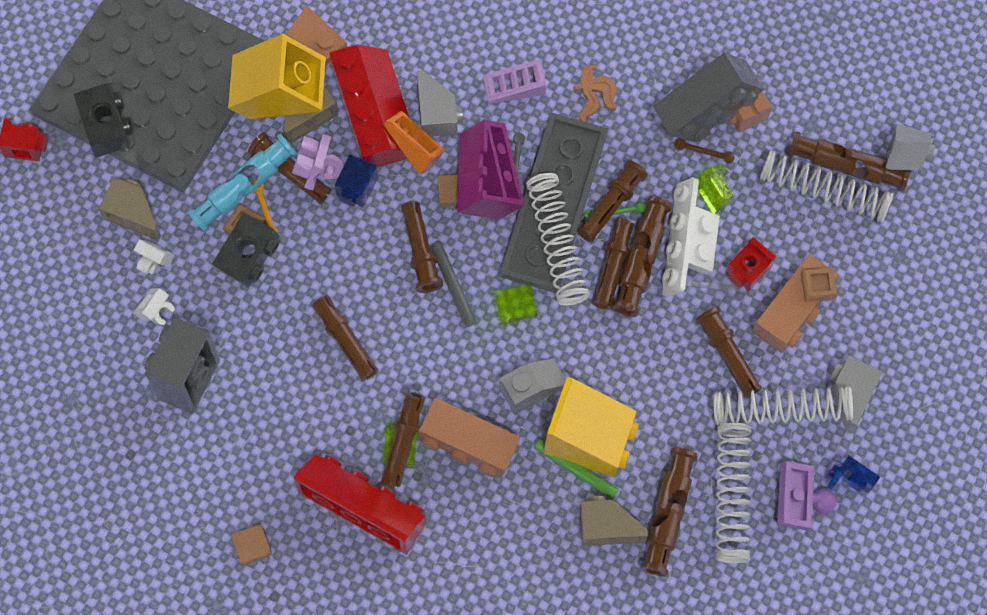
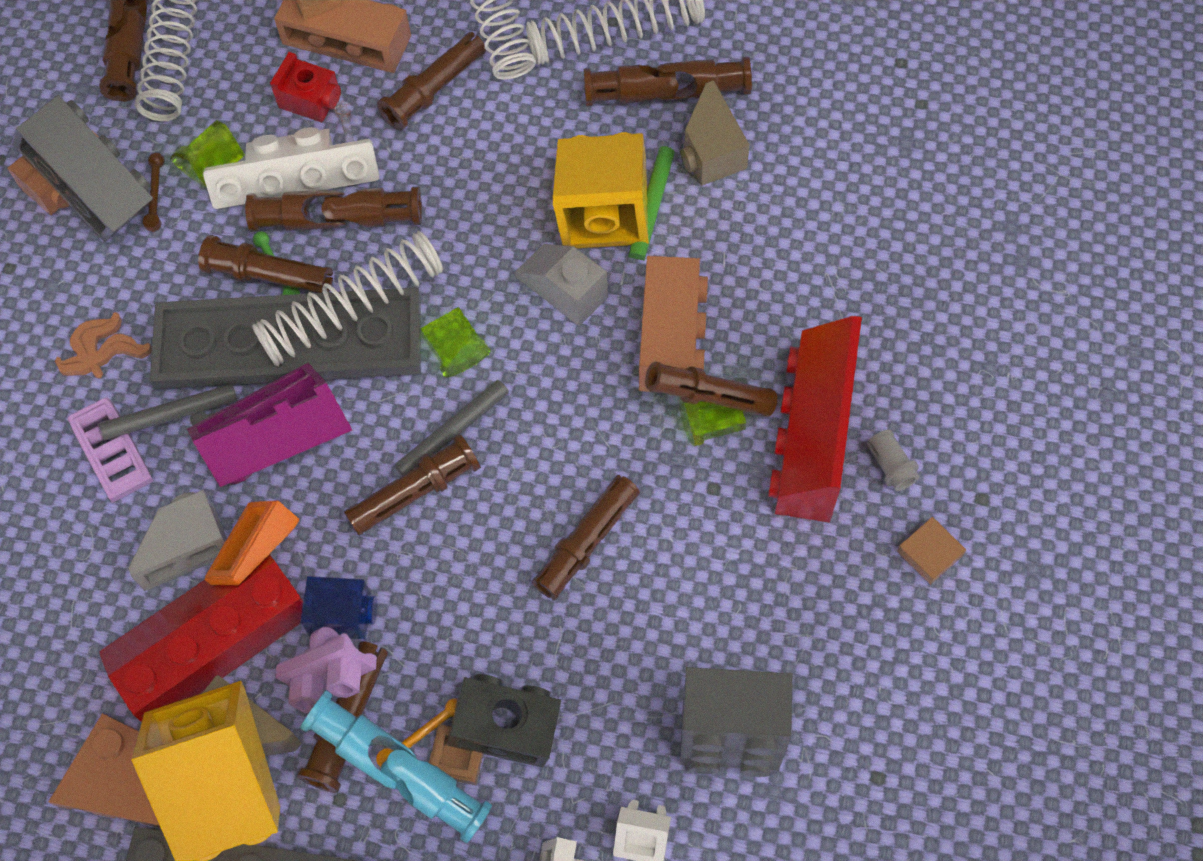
camera: 105 degrees left, 5 degrees down
(319, 545) = (892, 459): none -> light grey pin
(448, 190) = (307, 476): medium nougat tile -> none
(525, 118) = (166, 412): none -> dark grey bar
(616, 251) = (350, 240): reddish brown pin -> none

